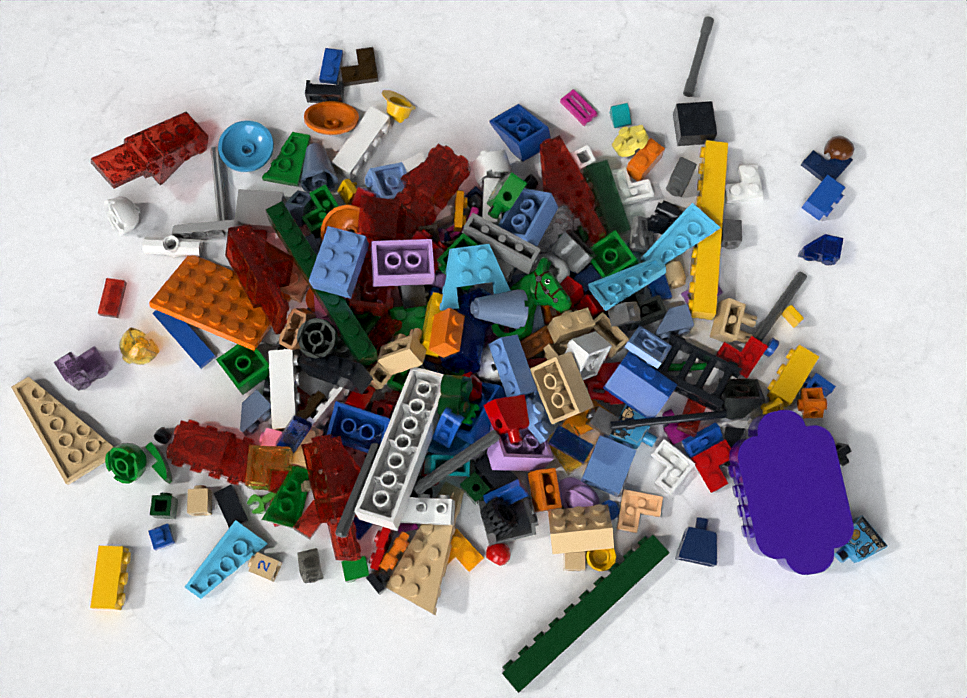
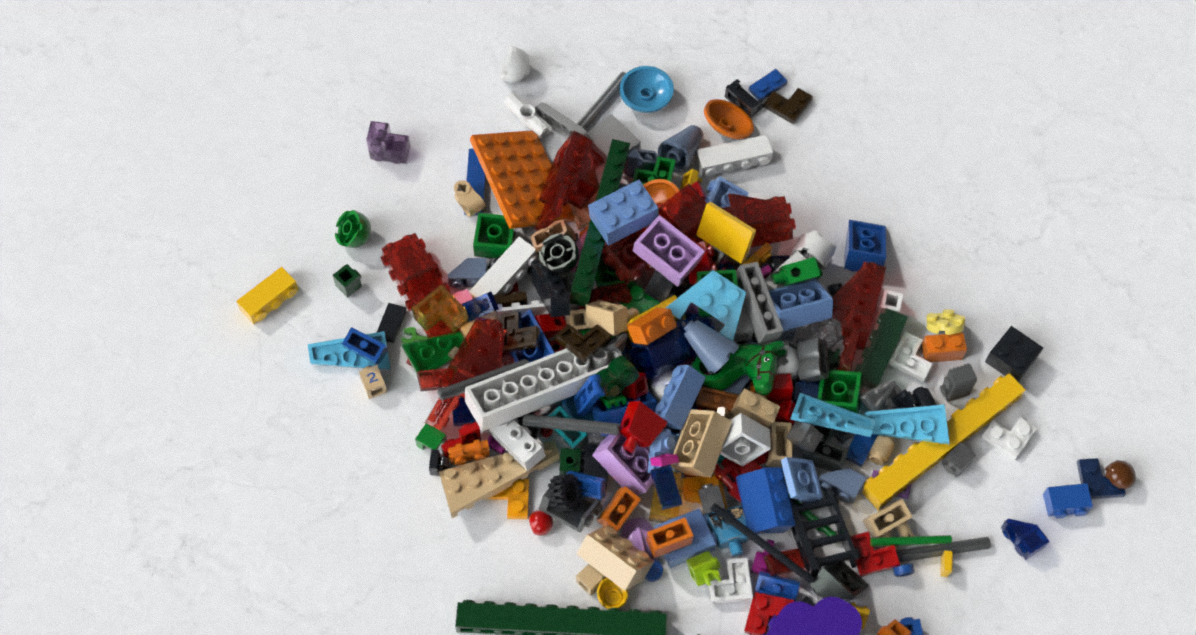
camera: 45 degrees right, 10 degrees down
(68, 439) = (331, 182): tan wing -> none
(112, 298) = (452, 116): clear red plate -> none
(137, 348) = (435, 161): clear yellow cylinder -> none
(153, 151) = (577, 39): clear red wedge -> none
(161, 465) = (373, 252): green slope -> none
(161, 536) = (326, 300): blue tile -> none
(163, 435) = (394, 234): black hinge -> none
(197, 354) = (468, 198): none -> tan piece
(199, 501) = (374, 299): tan brick -> none
(234, 547) = (365, 346): none -> blue brick
(289, 163) = (663, 127): green wing -> none
(310, 565) = (402, 409): clear smoke bracket -> none
(350, 432) = (516, 336): none -> dark brown plate
(397, 105) = (788, 150): yellow piece -> none
(406, 394) = (583, 345): none -> dark brown plate
(427, 209) = (726, 232): none -> yellow tile
(429, 368) = (617, 343): none -> dark grey slope
(548, 425) = (664, 460): none -> dark pink tile
(576, 110) = (931, 280): dark pink tile -> none
(606, 478) = (669, 537): none -> orange brick
(620, 115) = (959, 300): teal slope -> none
(633, 505) = (674, 583): light nougat plate -> none
(645, 475) = (704, 568): none -> lime brick
(699, 53) = (1097, 296): dark grey piece -> none
(757, 322) = (916, 540): none -> green bar
(792, 374) = (899, 605): yellow brick -> none

